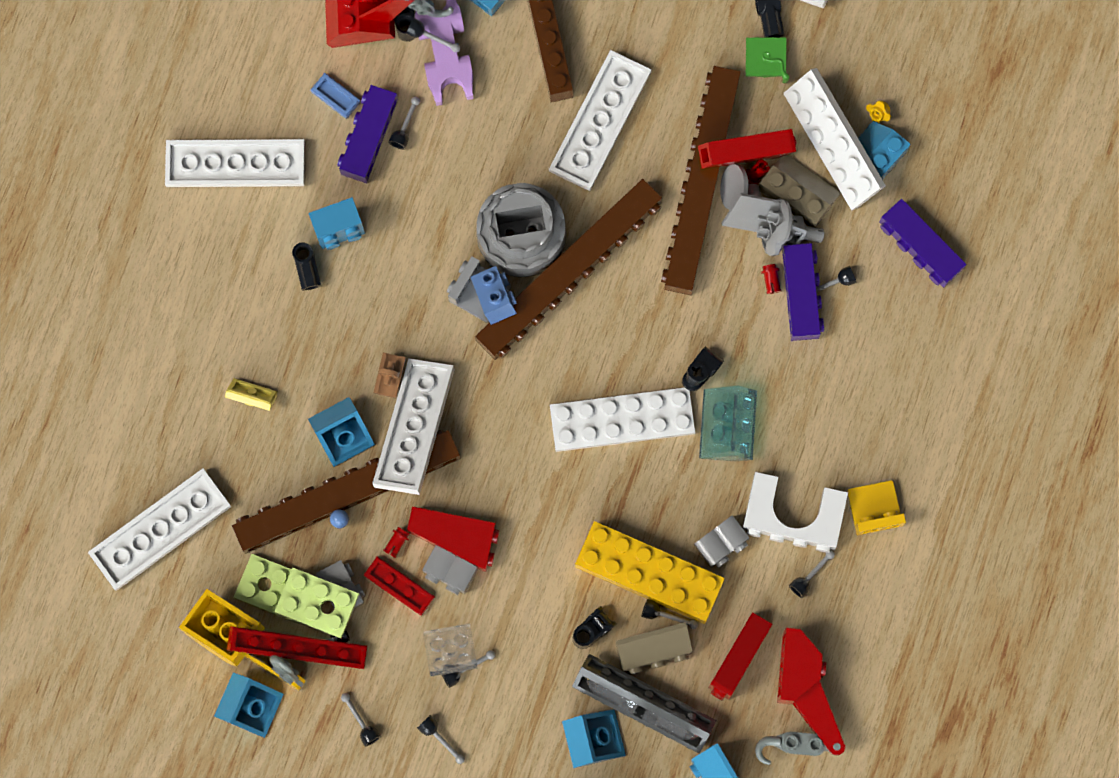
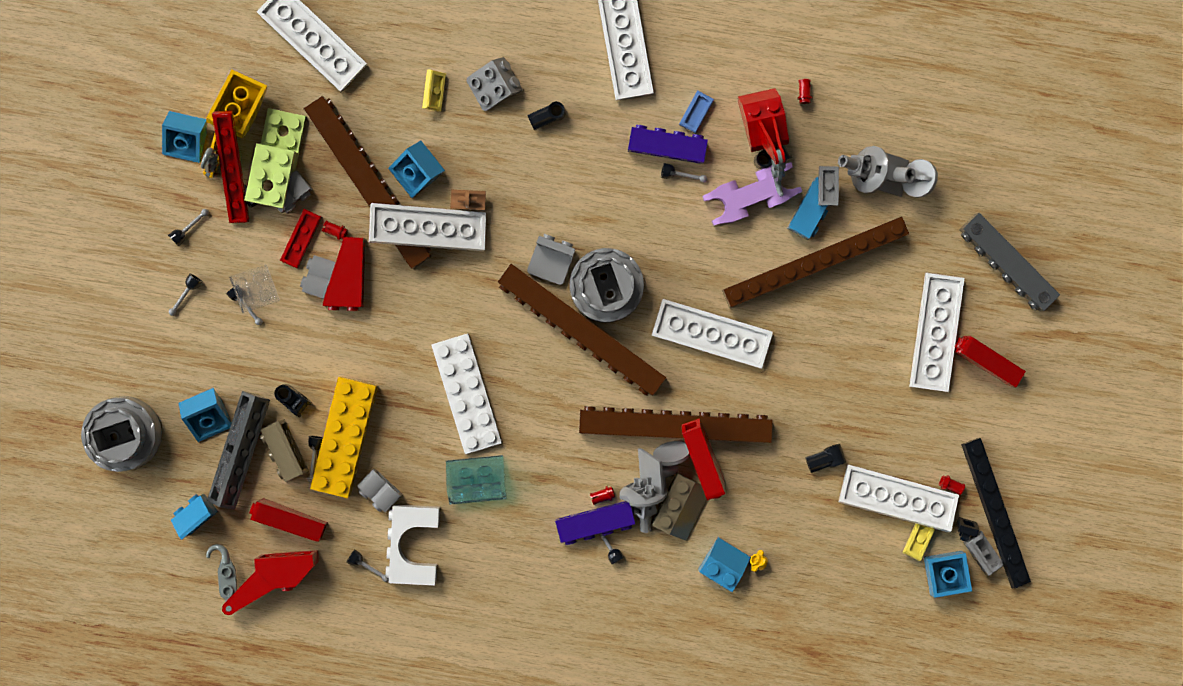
camera: 80 degrees right, 10 degrees up
(257, 323) = (493, 83): none -> light grey bracket
(337, 224) = (585, 133): dark azure brick -> none
(339, 519) = (343, 181): medium blue cylinder -> none
(417, 29) = (759, 169): hinge -> none
(493, 294) = (546, 272): medium blue brick -> none
(701, 369) = (518, 452): black piece -> none
(757, 171) = (688, 469): red pin -> none
(766, 58) = (788, 461): bright green hat -> none
(834, 139) = (726, 528): white plate -> none
(875, 508) = (427, 608): yellow bracket -> none
(922, 243) = (653, 613): dark purple brick -> none

